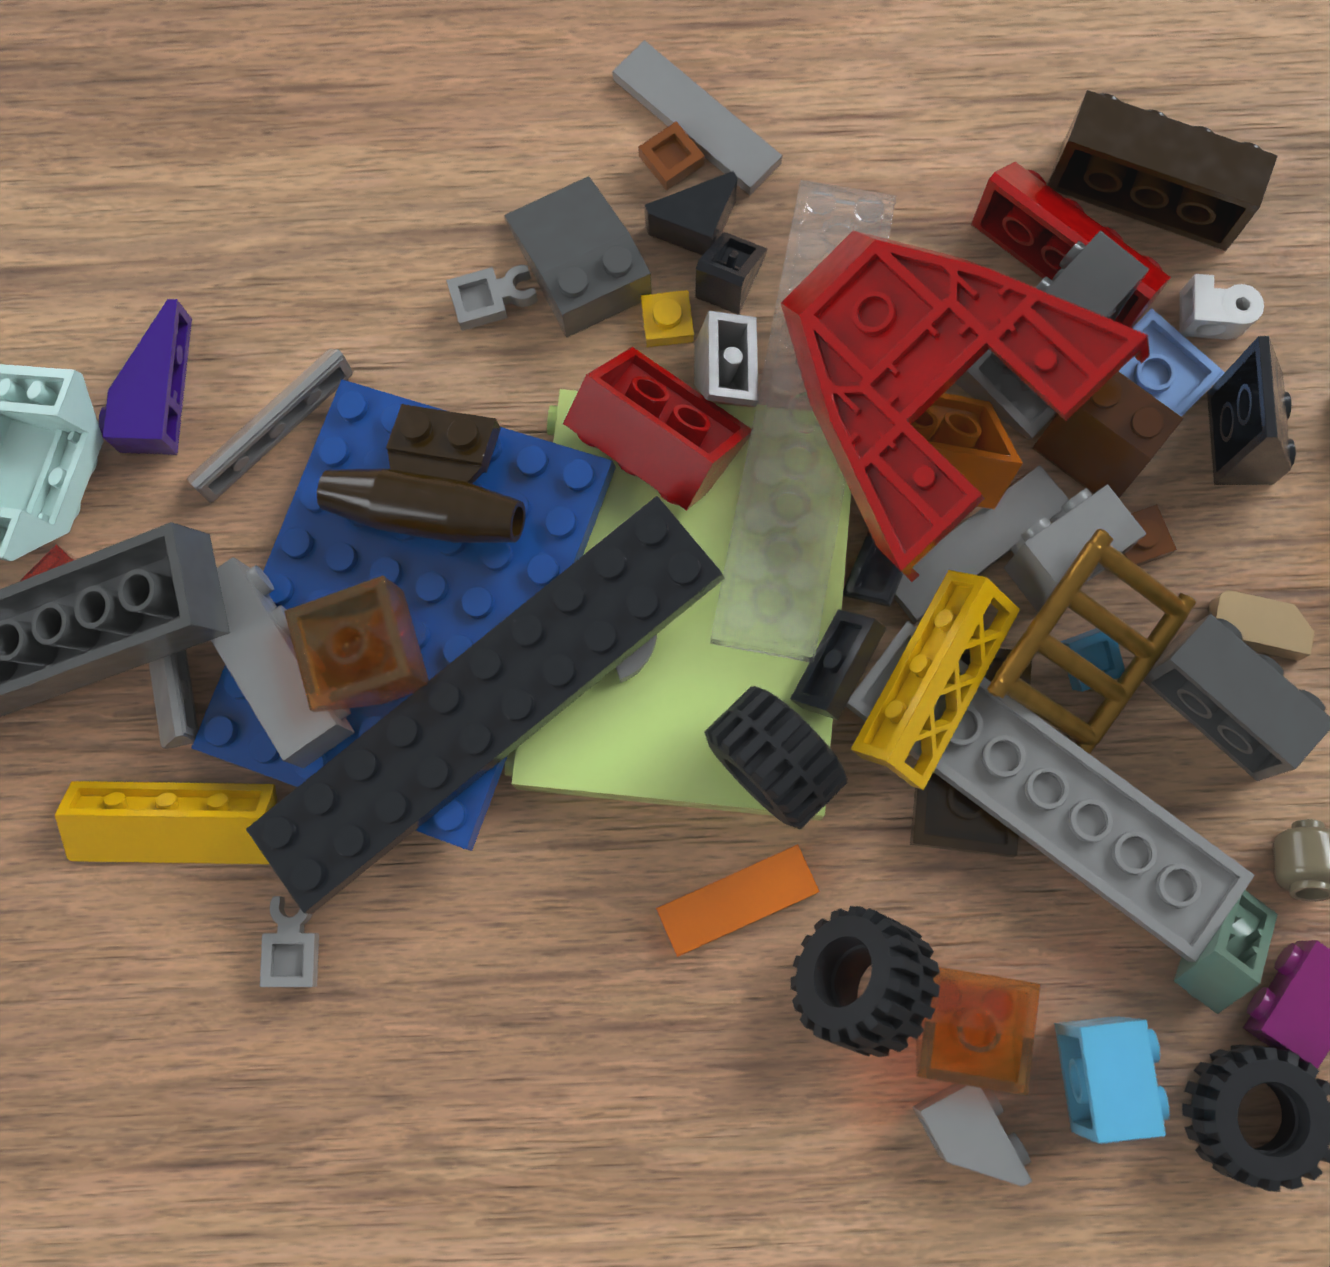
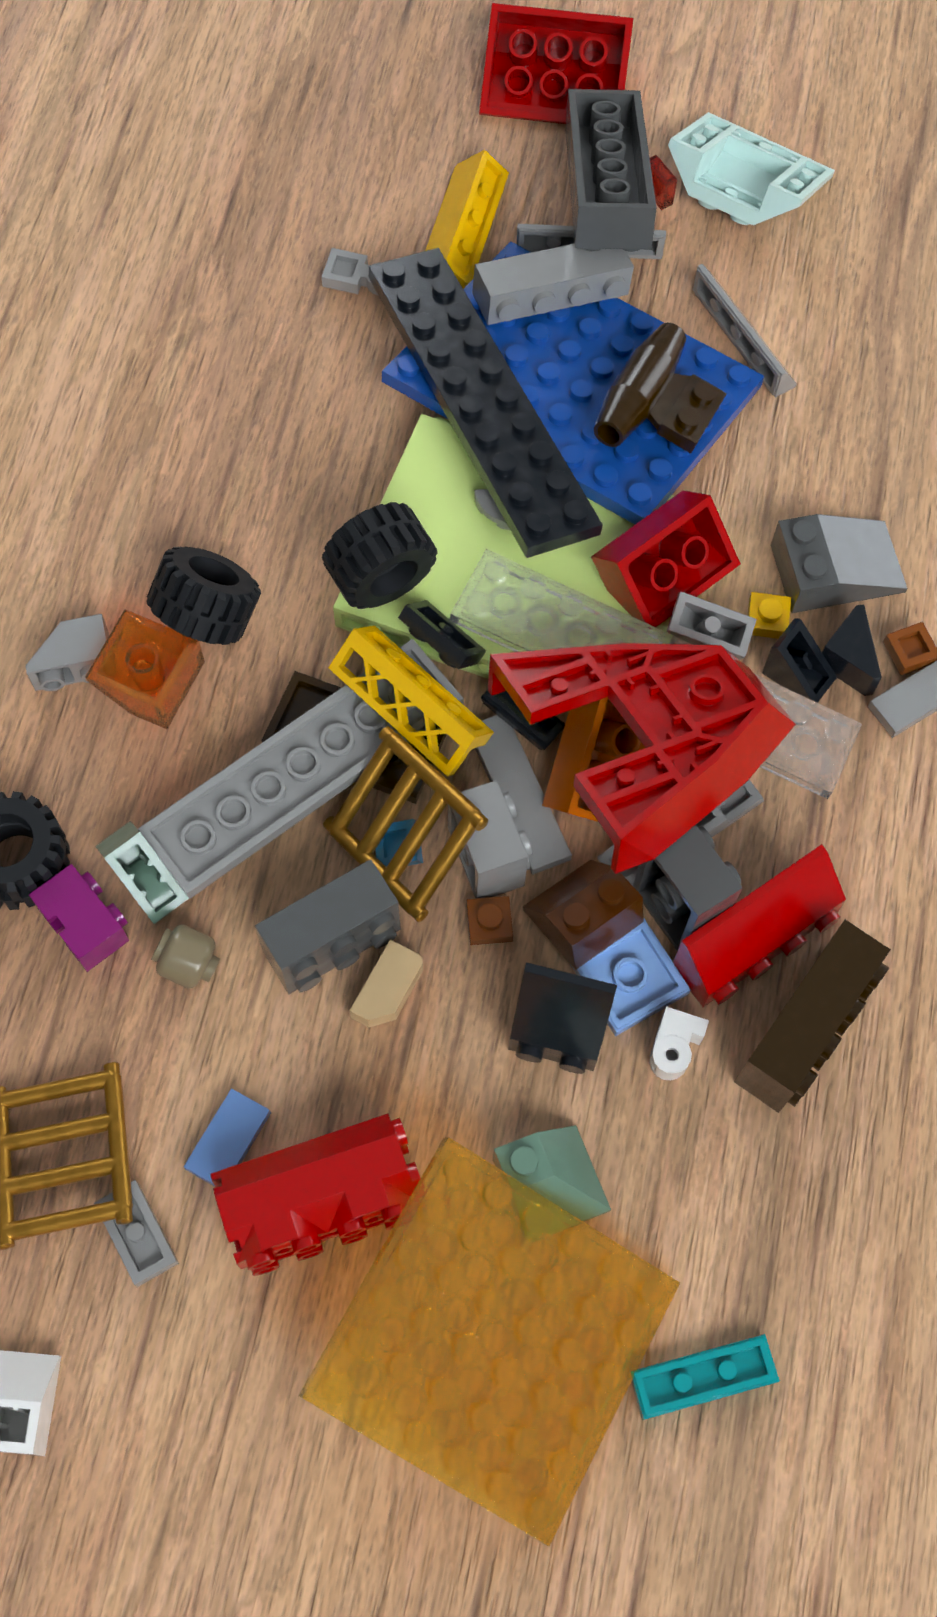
camera: 100 degrees right, 10 degrees down
(148, 392) = (788, 261): dark purple slope -> none
(357, 647) = (543, 322): clear orange slope -> none
(482, 297) = (814, 487): light grey plate -> none
(737, 900) = (293, 552): orange tile -> none
(1112, 1079) = (77, 745): medium azure brick -> none

